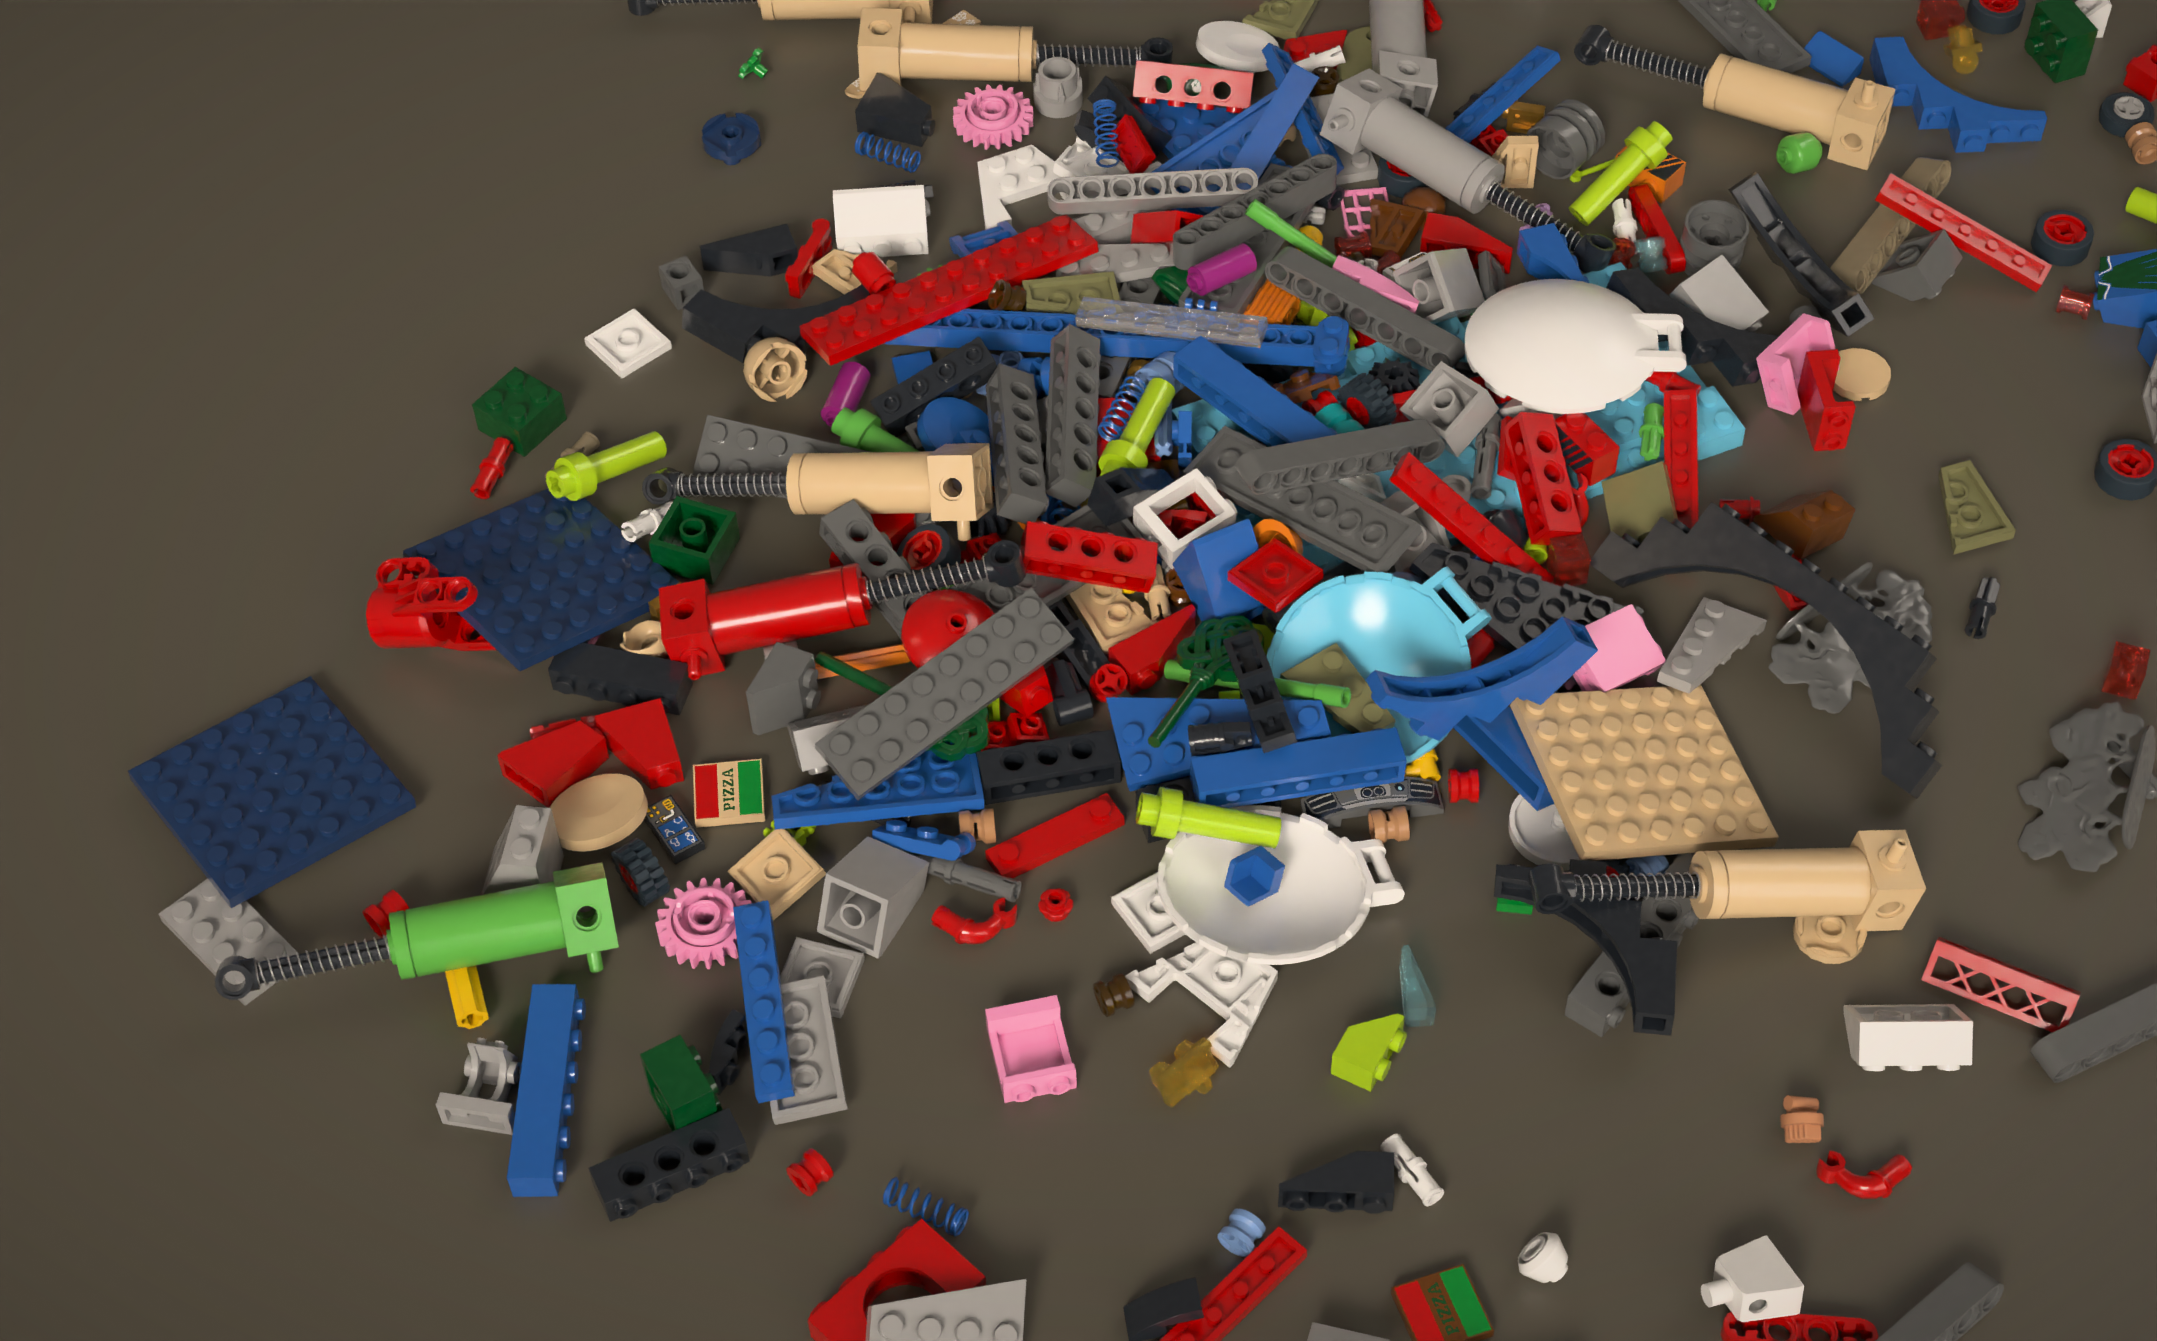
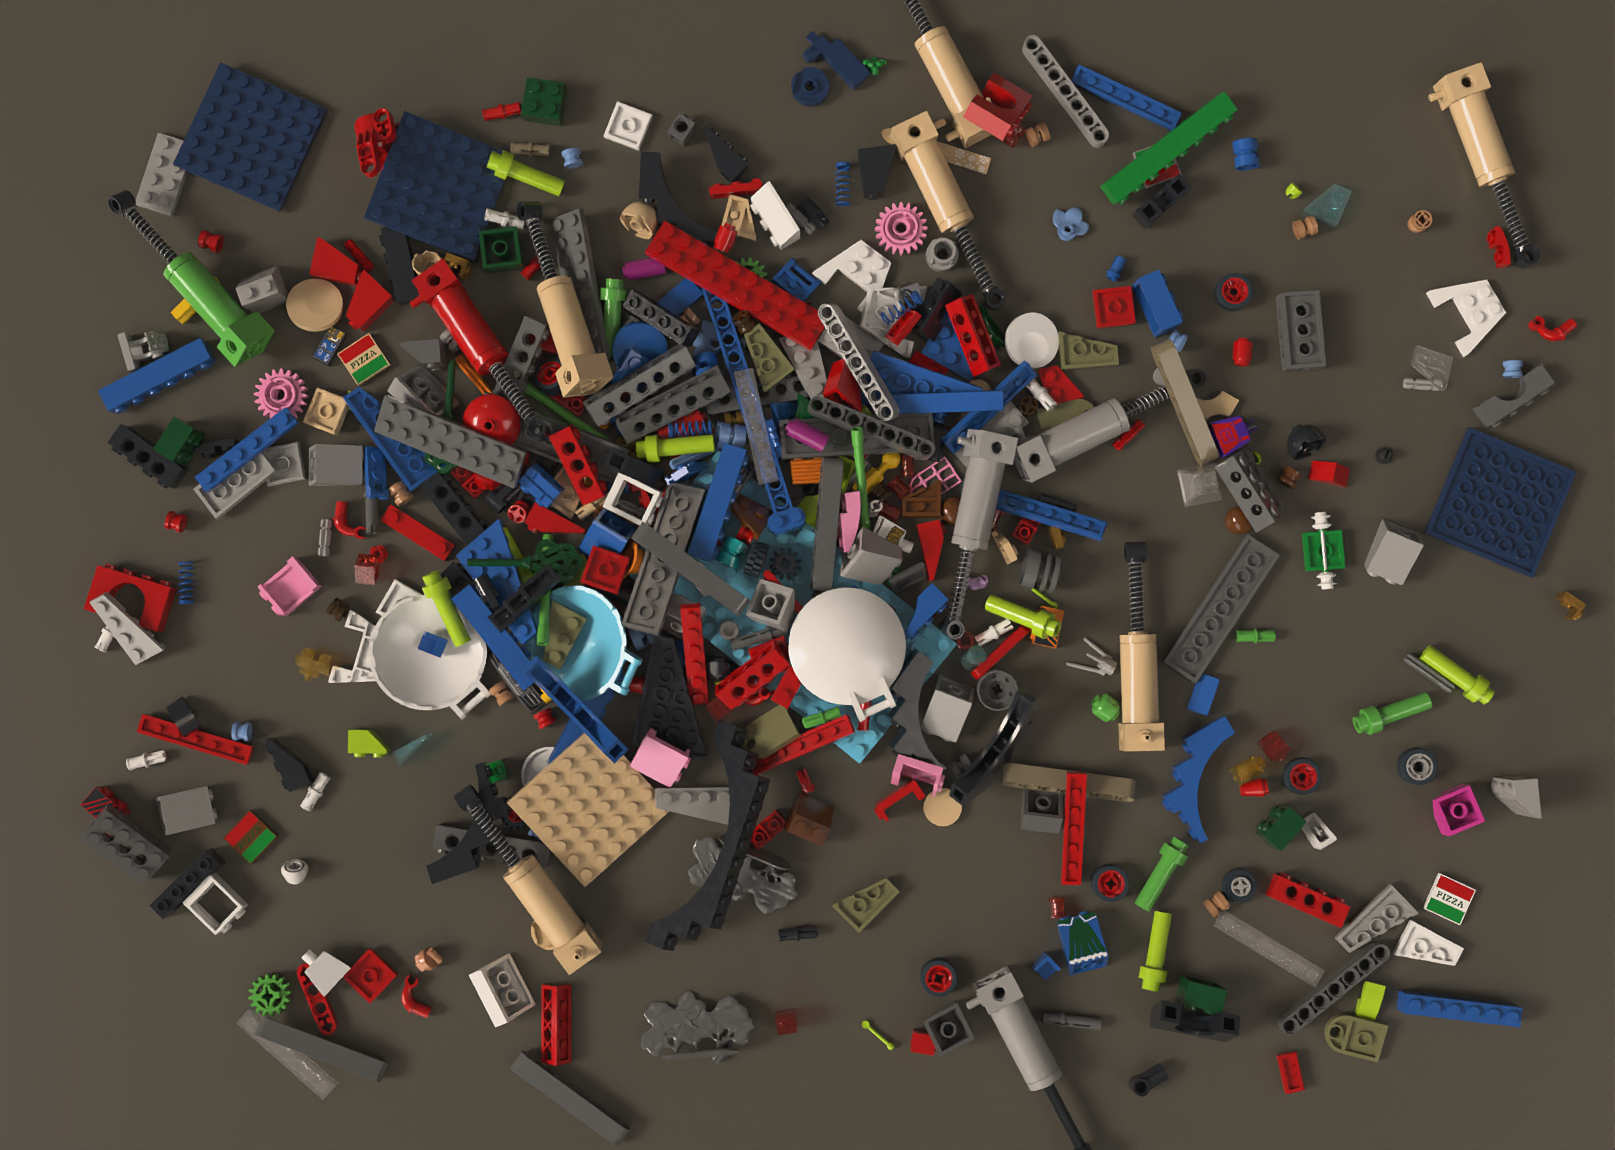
camera: 65 degrees right, 35 degrees up
(624, 414) = (572, 158): none -> medium blue wheel
(640, 871) = (287, 348): black wheel -> none
(717, 96) = (839, 59): none -> dark blue piece
(747, 526) = (530, 270): none -> red pin
(980, 967) = (325, 537): none -> light grey axle
(1073, 918) = (367, 569): none -> clear red brick
(1093, 622) = (541, 486): none -> blue brick
(1328, 228) = (907, 464): none -> clear red pin
(1735, 134) = (1105, 665): none -> light grey plant
(1795, 1222) = (370, 975): none -> red plate
(1993, 52) = (1255, 788): none -> red cone
(2053, 158) = (1172, 855): none -> bright green piece

